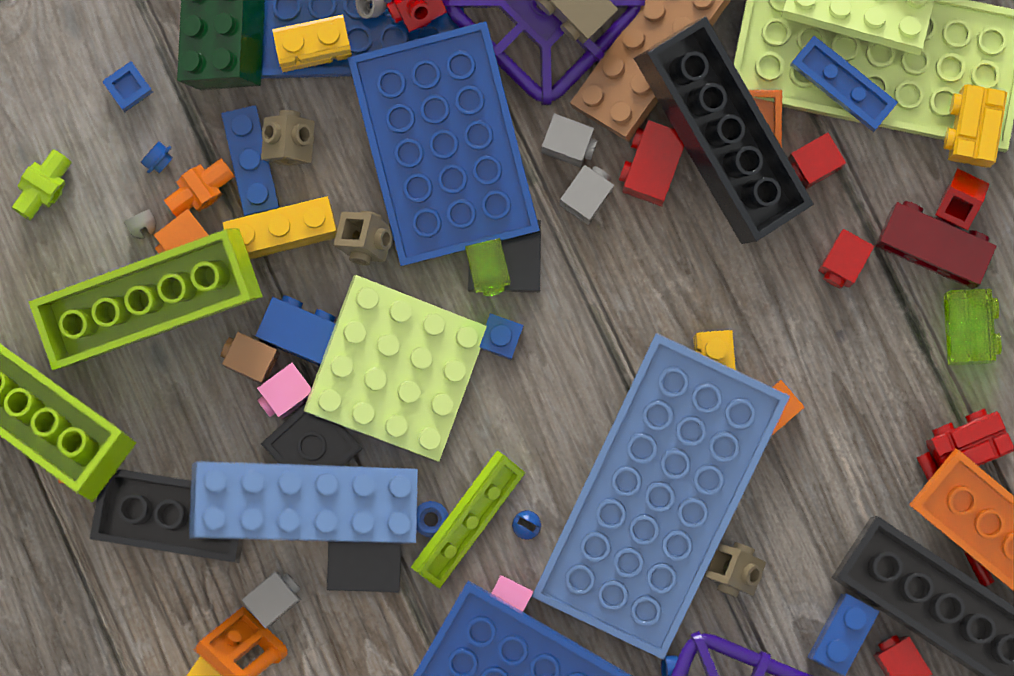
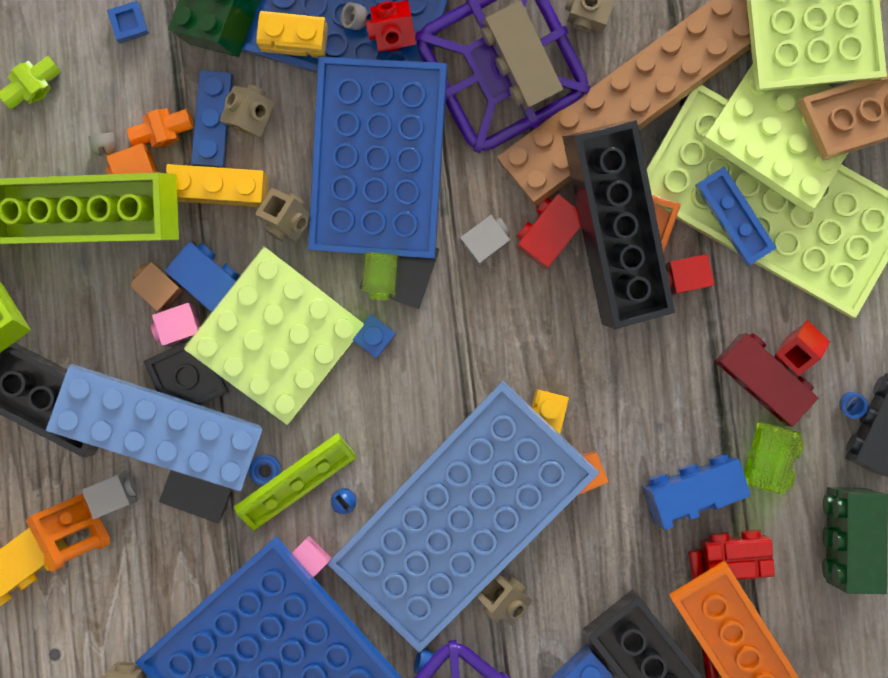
camera: 20 degrees right, 5 degrees up
(157, 158) = (133, 91): blue plate -> none
(569, 141) = (485, 189): light grey brick -> none
(845, 259) = (685, 366): red brick -> none
(900, 386) = (695, 490): none -> blue wedge
(976, 125) = (837, 289): yellow brick -> none

